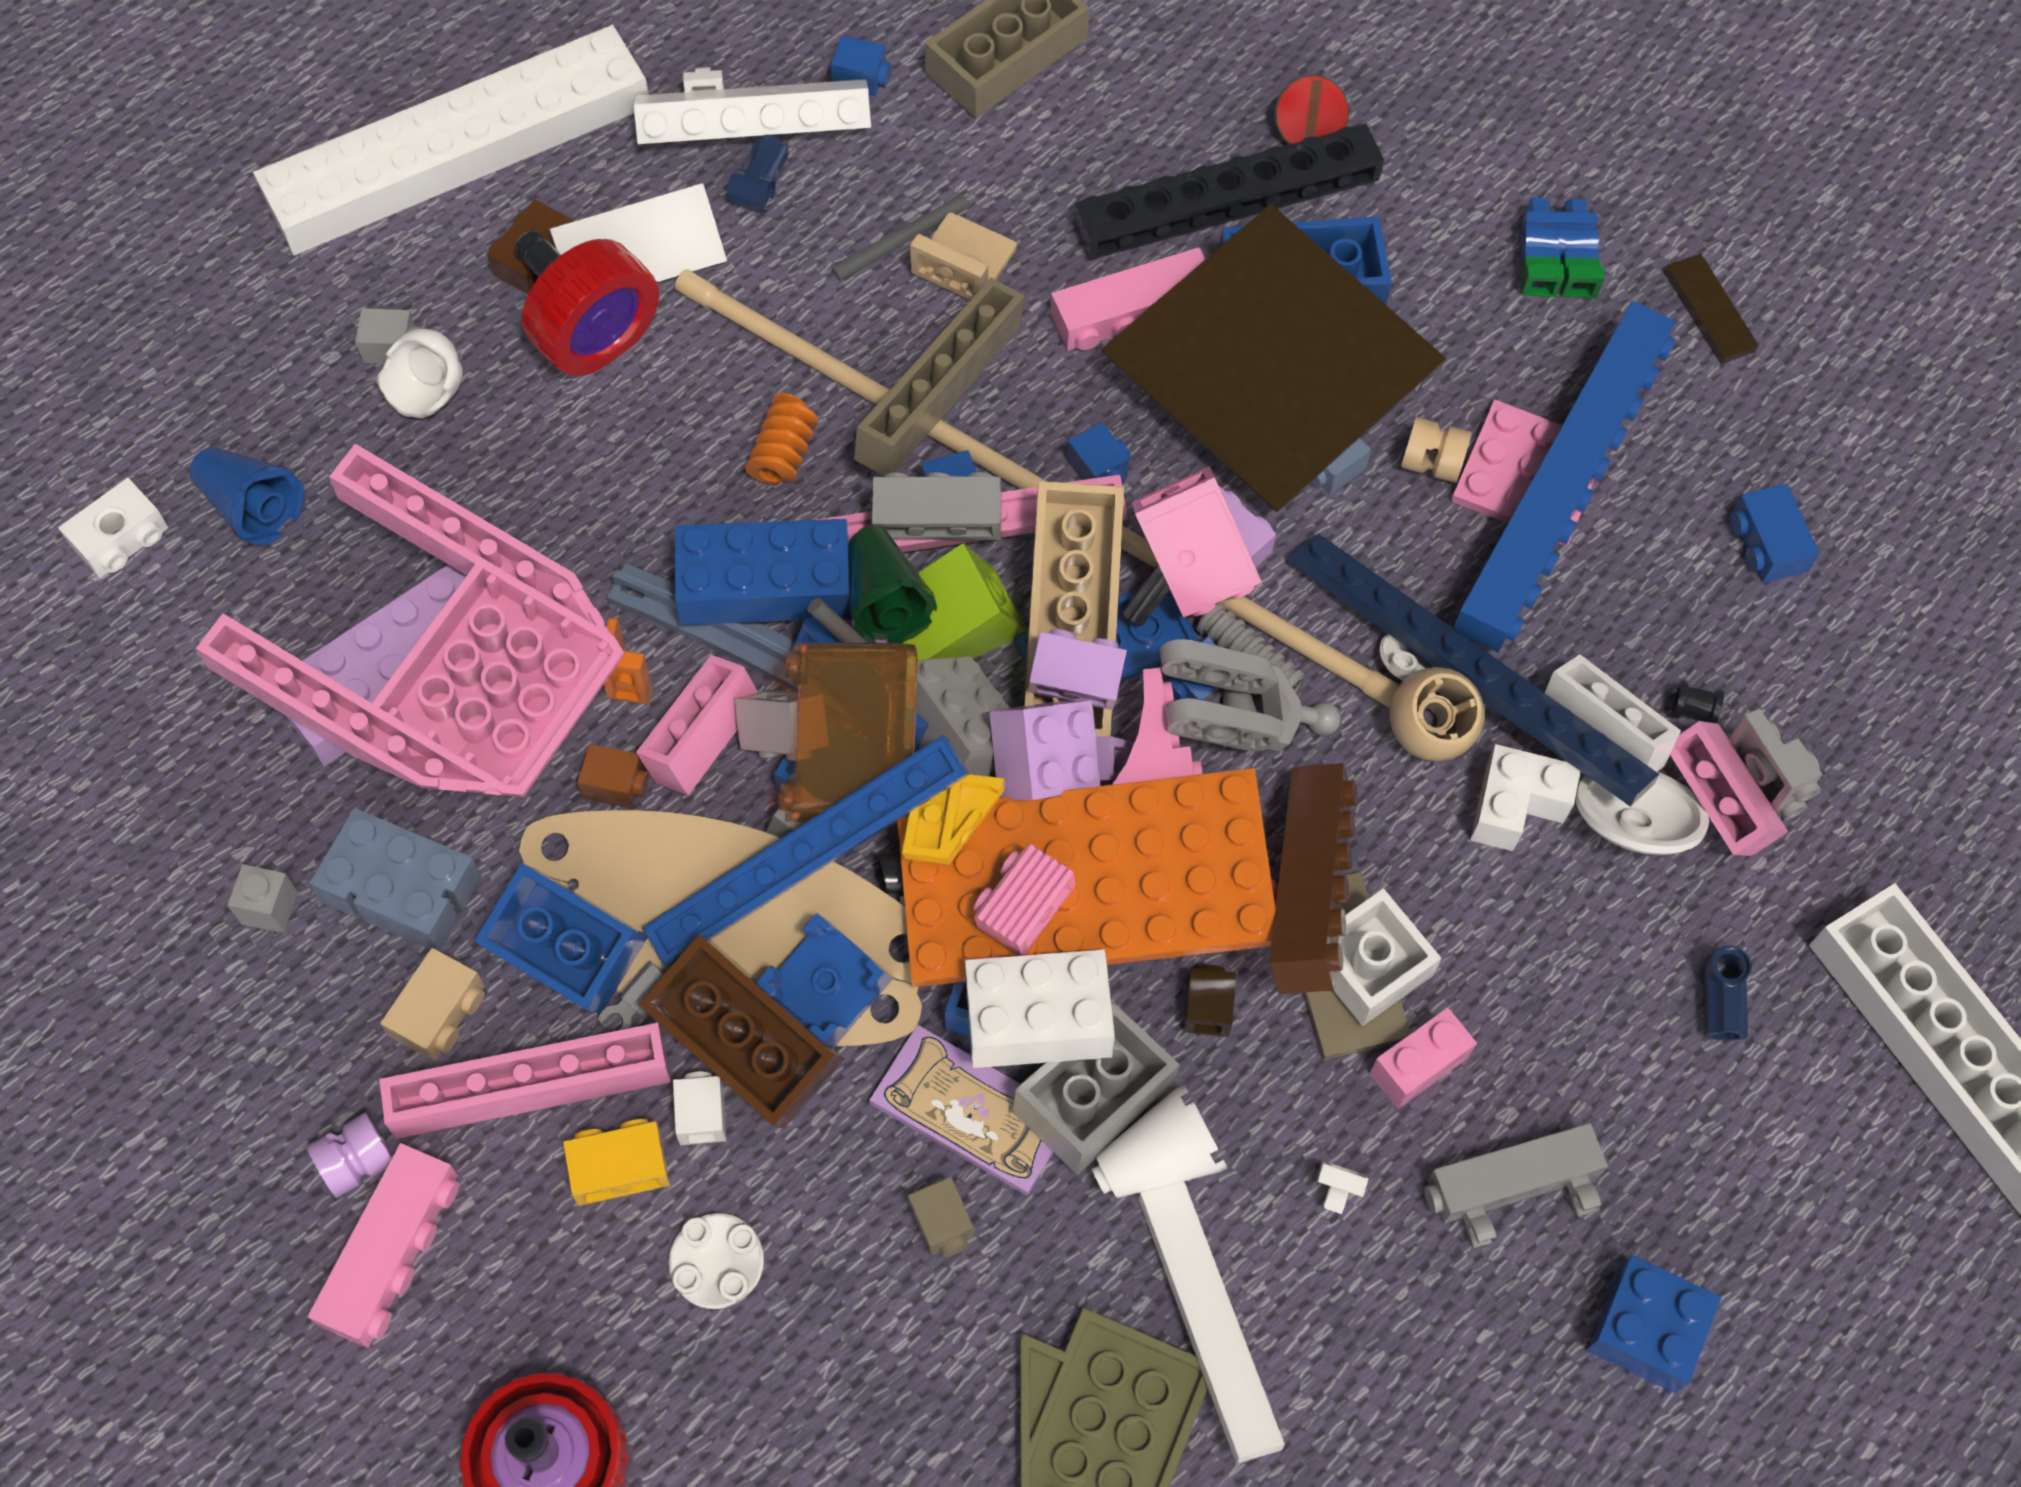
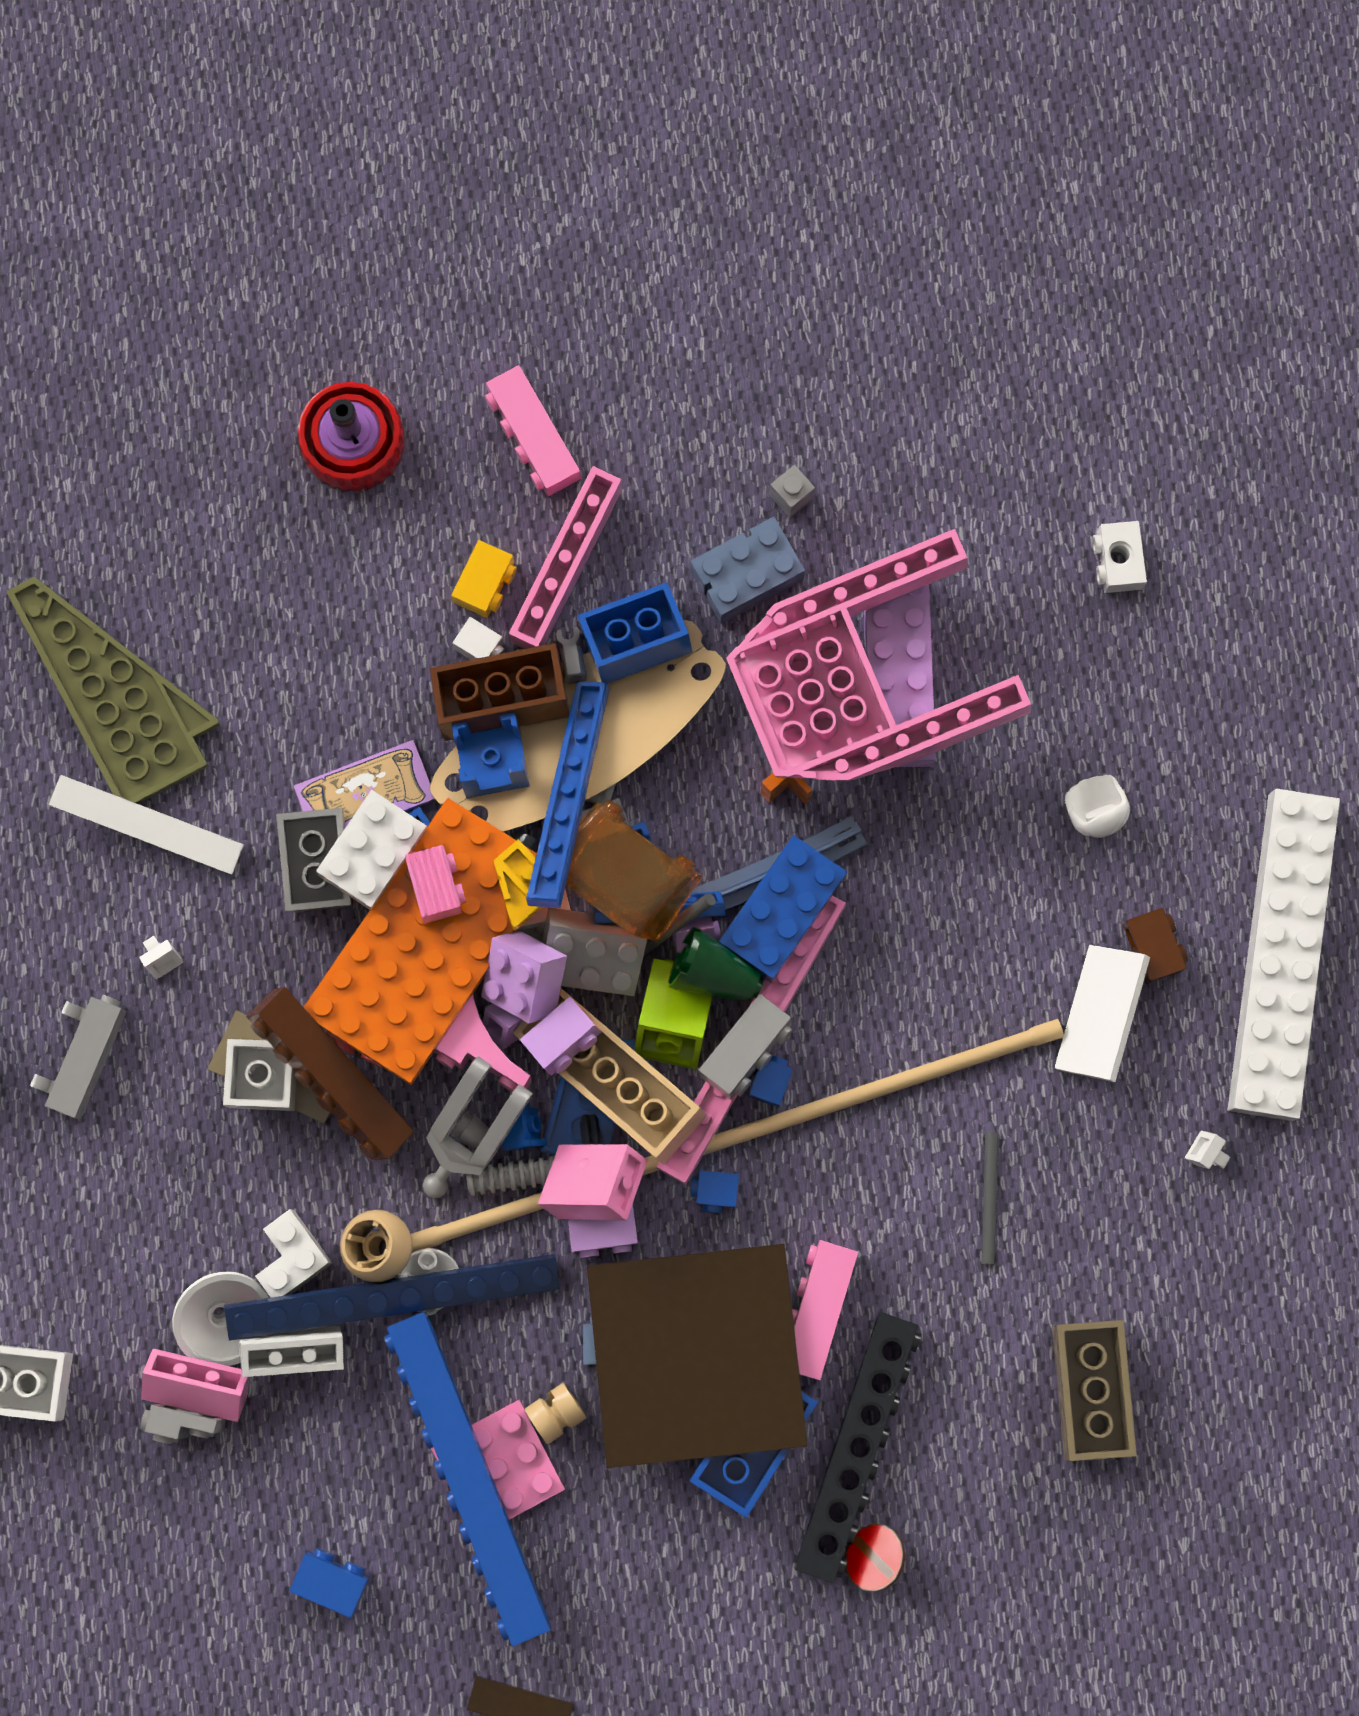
camera: 130 degrees right, 15 degrees up
(248, 493) = (1088, 646): blue cone -> none
(350, 1155) = (597, 439): lavender wheel -> none
(380, 330) = (1149, 808): light grey brick -> none
(434, 1005) = (654, 543): tan brick -> none
(585, 302) = (1066, 937): red wheel -> none
(612, 776) = (722, 735): dark orange brick -> none
(696, 726) = (714, 805): bright pink brick -> none
(716, 1261) = (389, 595): white dish -> none
(752, 111) = (1160, 1167): white brick -> none
(758, 177) = (1105, 1133): dark blue piece -> none
(768, 723) = (684, 840): light grey brick -> none
(782, 440) = (879, 999): orange piece -> none
(860, 61) = (1149, 1273): blue brick -> none
(938, 378) = (844, 1126): dark tan brick -> none
(941, 1218) = (314, 727): dark tan brick -> none
(961, 255) = (940, 1226): tan bracket -> none
(1159, 1150) = (253, 874): white cone -> none
(1210, 1001) = (312, 965): dark brown brick -> none
(1422, 1058) = (187, 1060): bright pink brick -> none
(1560, 250) = (652, 1637): hips -> none
(1697, 703) = (262, 1425): black bush -> none
(1725, 997) = (81, 1269): dark blue piece -> none

